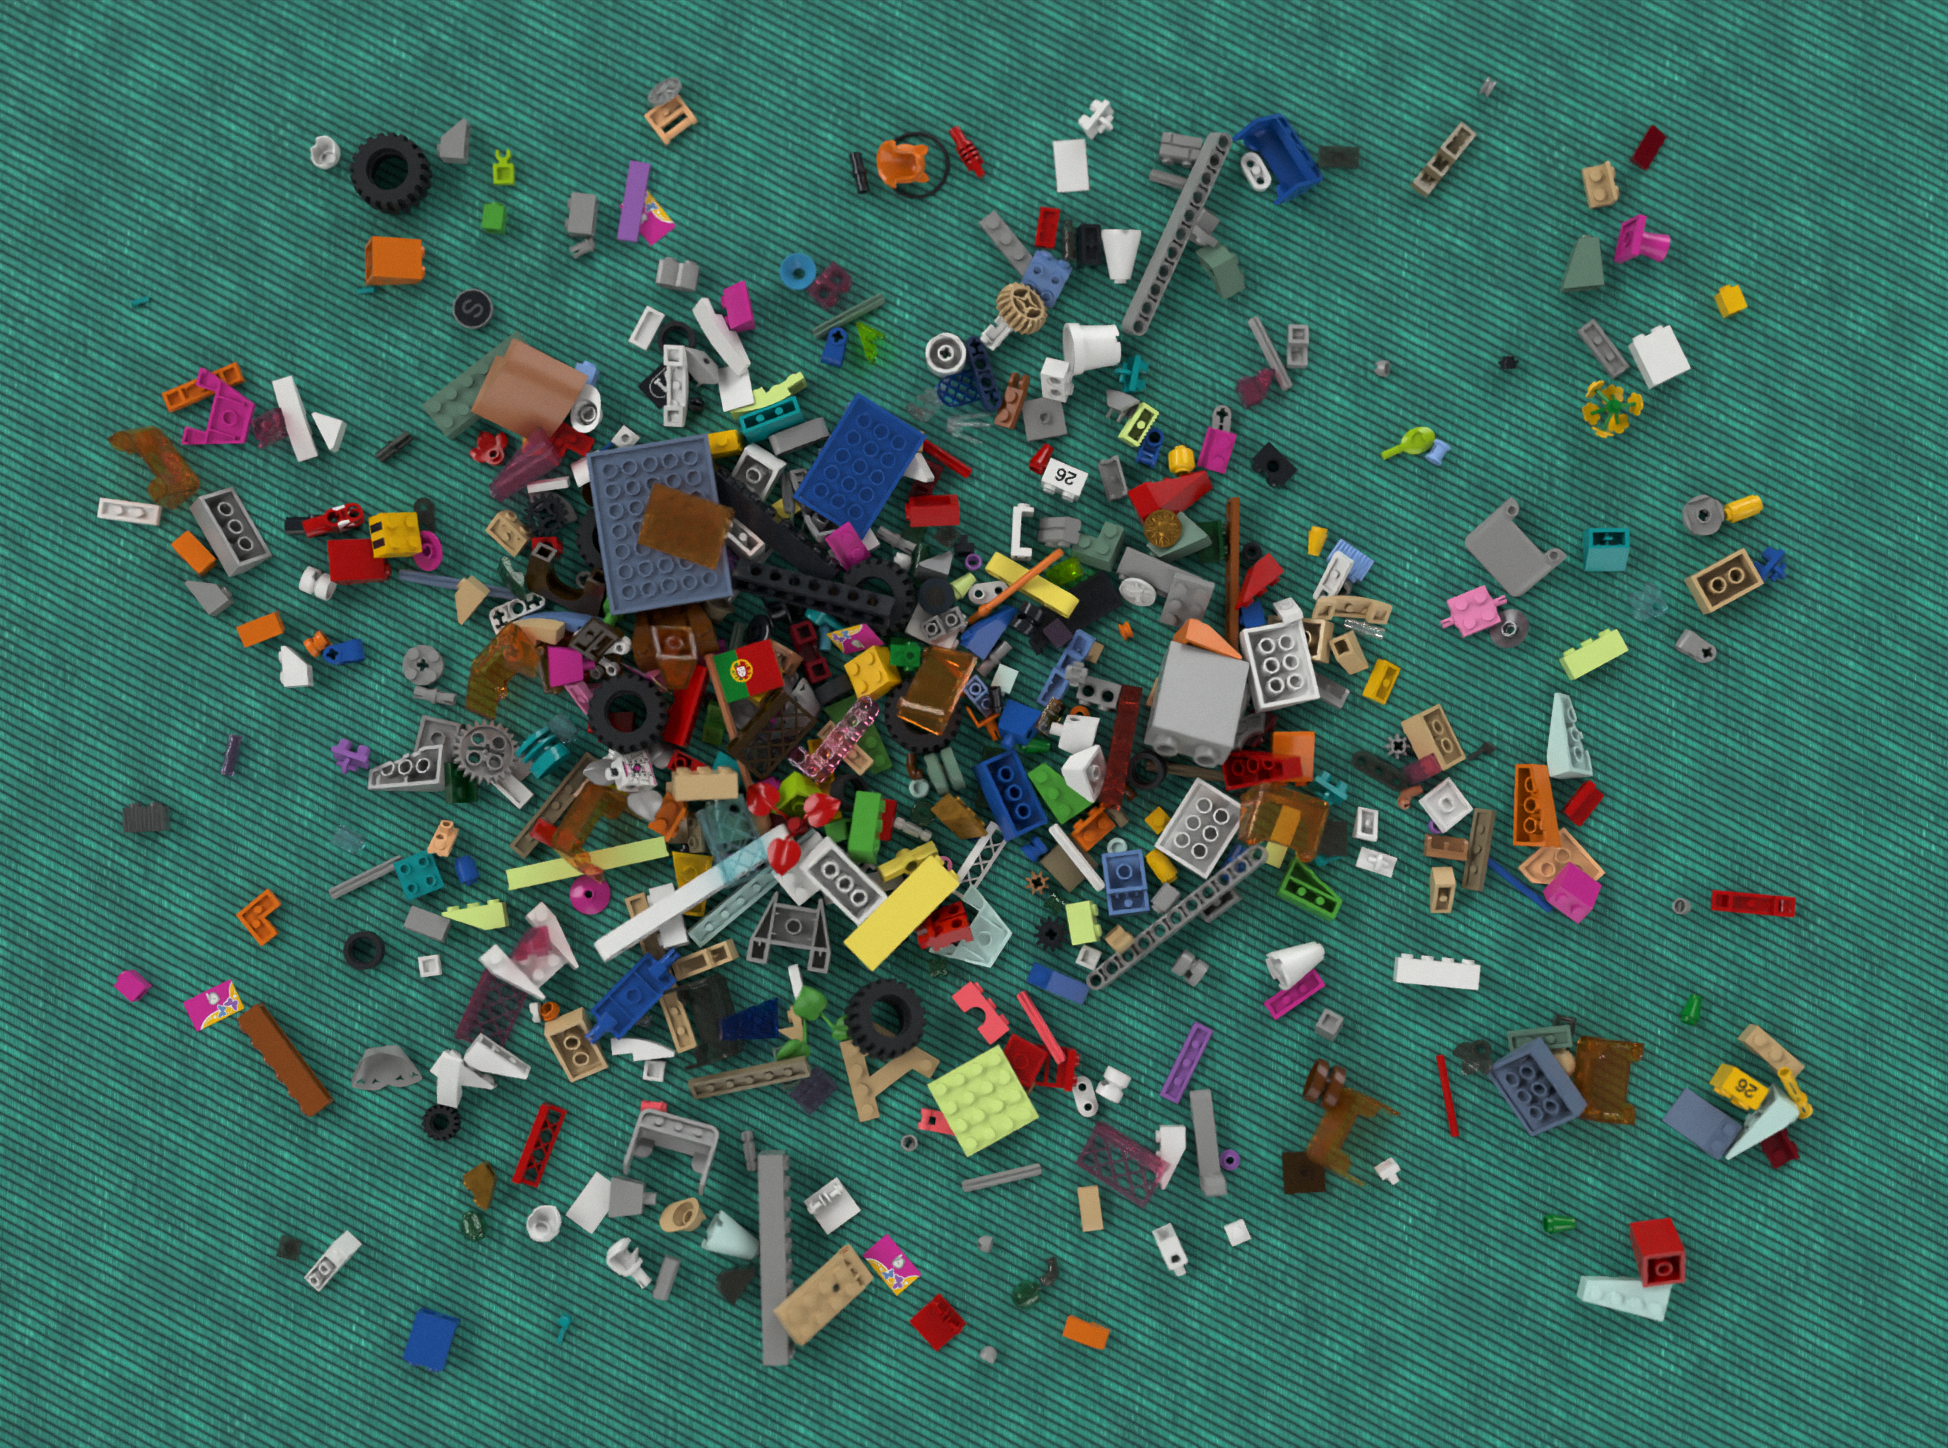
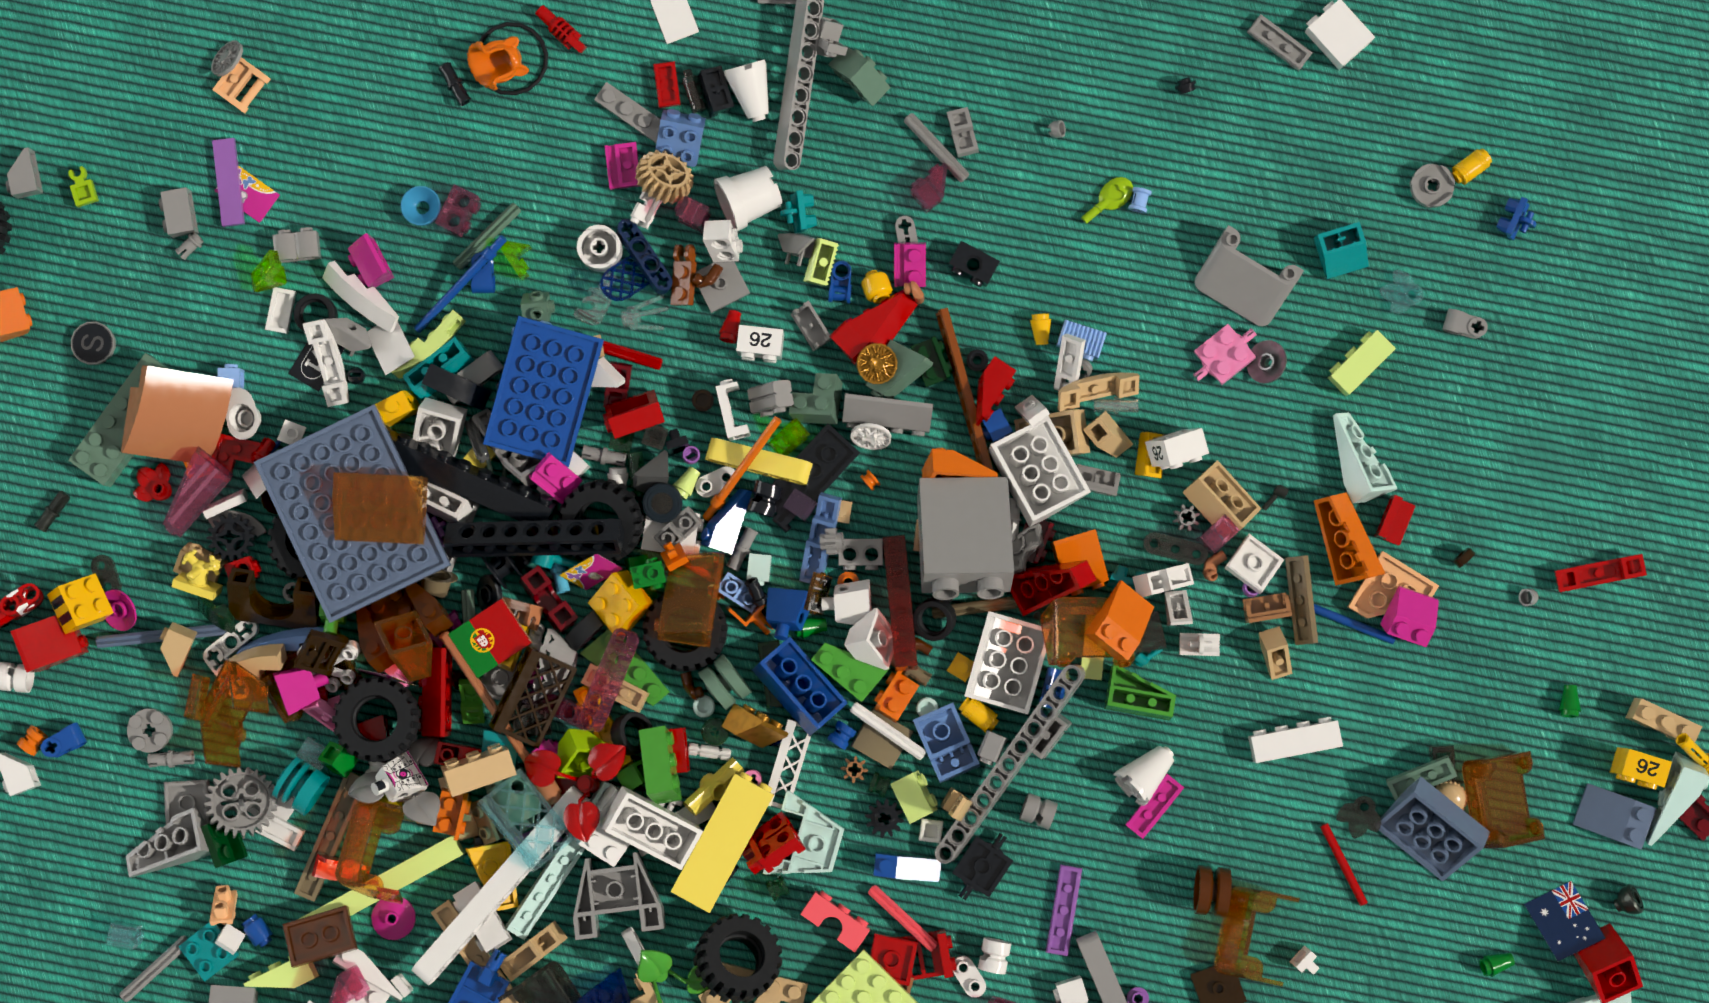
camera: 15 degrees left, 0 degrees up
(350, 760) = (101, 852): medium lavender hips -> none
(441, 869) = (230, 938): none -> white tile
(473, 647) = (197, 697): none -> clear orange tile
(494, 218) = (87, 242): bright green brick -> none
(503, 544) = (197, 580): none -> light yellow piece
(521, 891) = (319, 936): none -> reddish brown tile
(580, 955) = (402, 985): none -> white tile
(582, 739) = (337, 759): none -> green brick
(598, 445) = (263, 450): none -> red pin
(646, 292) = (268, 273): none -> clear neon green slope
(783, 440) = (456, 386): none -> black slope
(846, 331) = (488, 254): none -> blue bar
(876, 389) = (537, 306): none -> sand green brick
(932, 646) = (674, 556): none -> orange tile
(986, 288) = (621, 165): none -> dark pink plate
(997, 516) = (702, 400): none -> dark brown plate
(1030, 411) = (708, 279): none -> reddish brown arm
(1037, 348) = (692, 213): none -> clear pink brick
(1125, 1002) = (982, 866): none -> black plate
(1185, 600) = (922, 431): light grey plate -> none
(1213, 470) = (918, 294): none -> nougat arm
(1313, 821) = (1120, 622): none -> orange slope
(1329, 1025) = (1200, 828): light grey brick -> none
(1360, 795) = (1163, 580): none -> white slope
(1408, 682) = (1177, 448): none -> white brick
(1612, 398) = (1302, 91): yellow plant -> none
(1630, 1203) = (1564, 921): none -> dark blue sticker
(1634, 854) = (1464, 557): none -> dark brown tile
(1693, 1202) = (1629, 900): none -> pearl dark grey brick
(1723, 581) = (1473, 248): tan brick -> none

